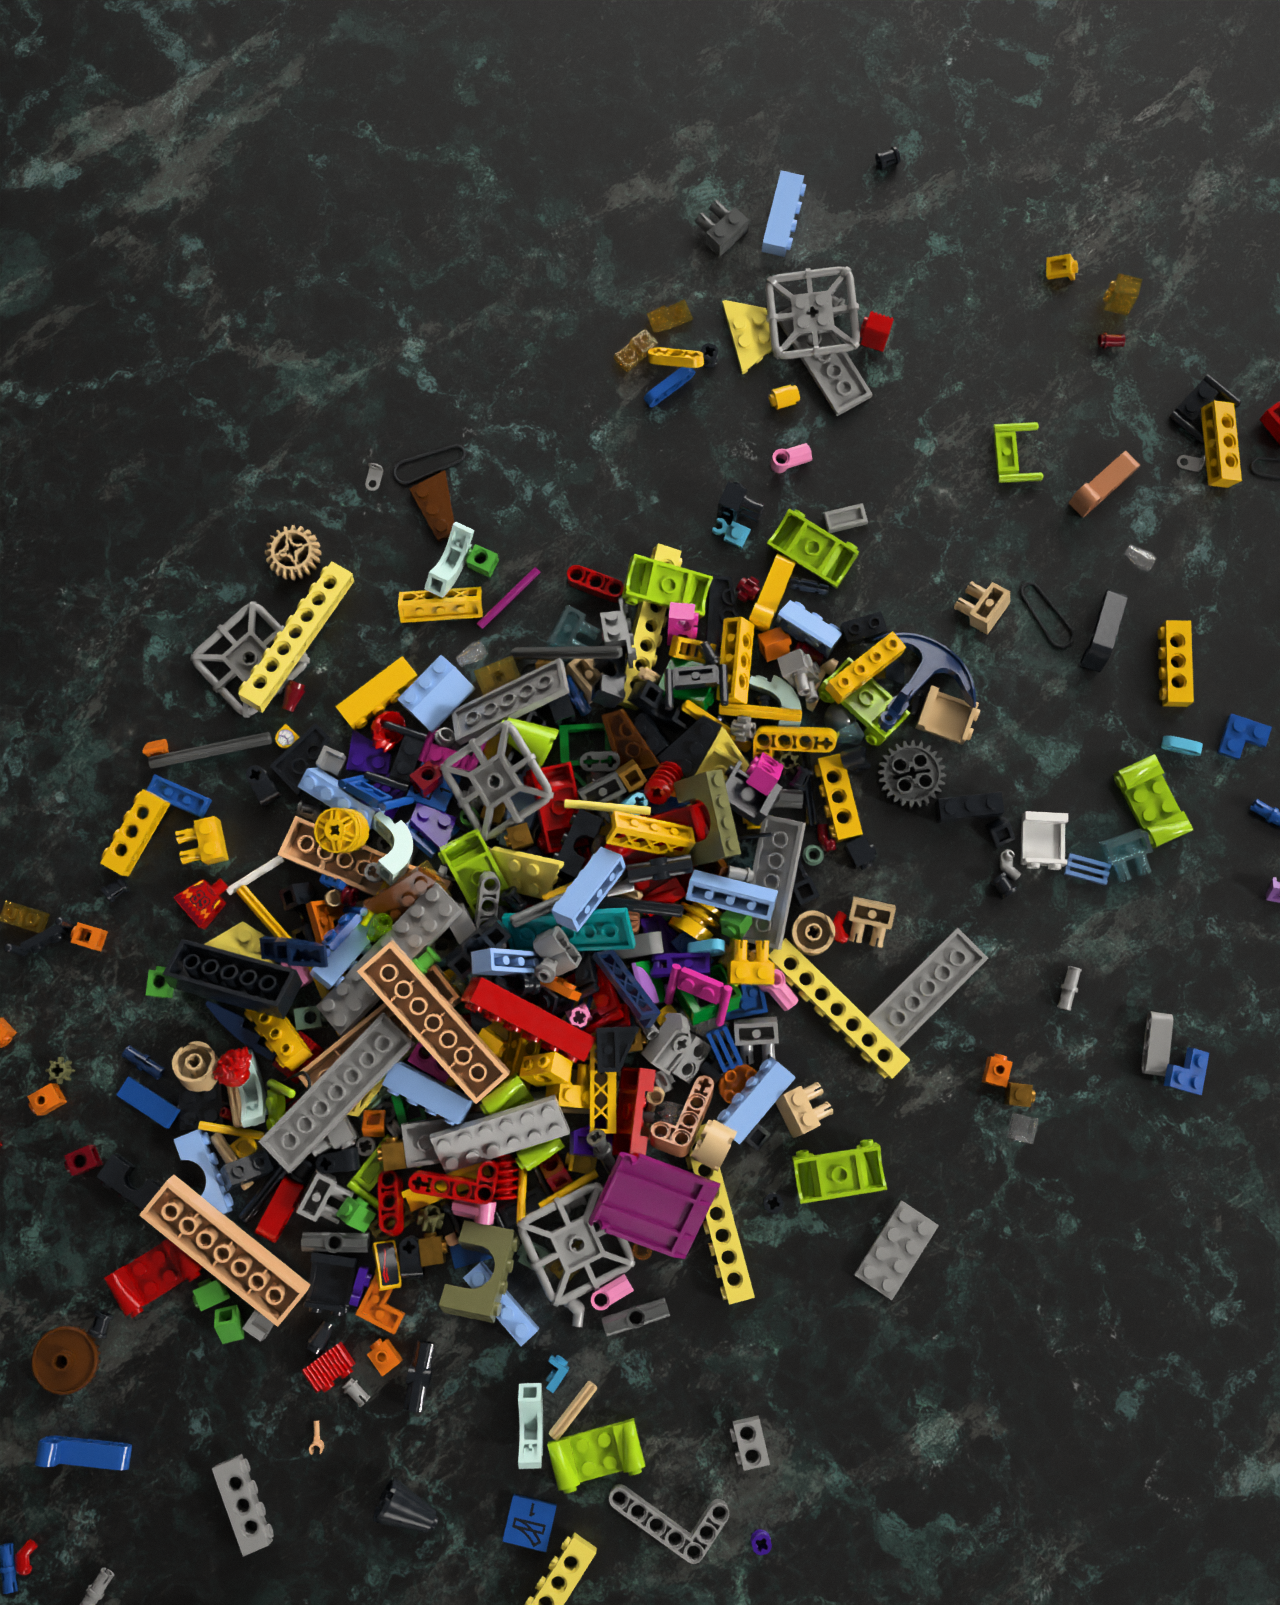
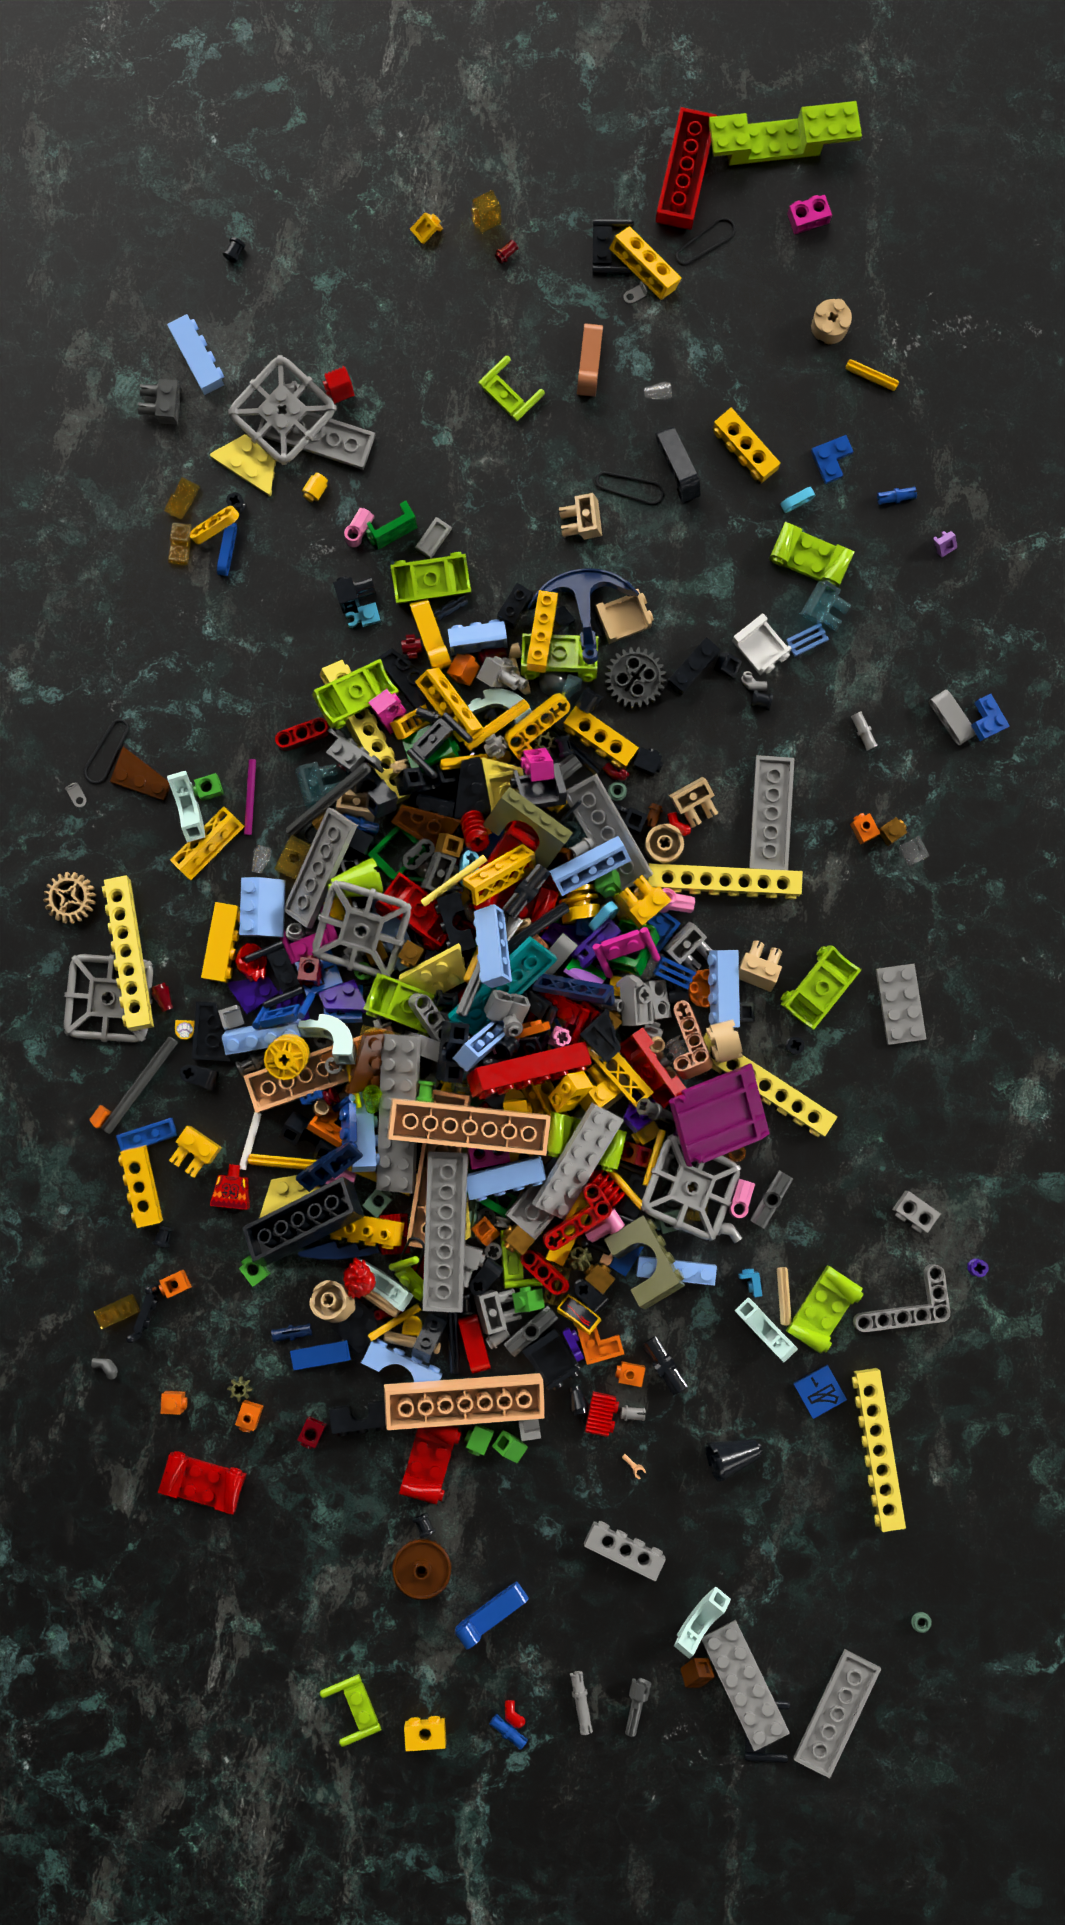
camera: 45 degrees left, 5 degrees up
(301, 1222) = (497, 1338): none -> light grey pin
(818, 483) = (393, 529): none -> green panel
(825, 901) = (653, 815): none -> reddish brown pin

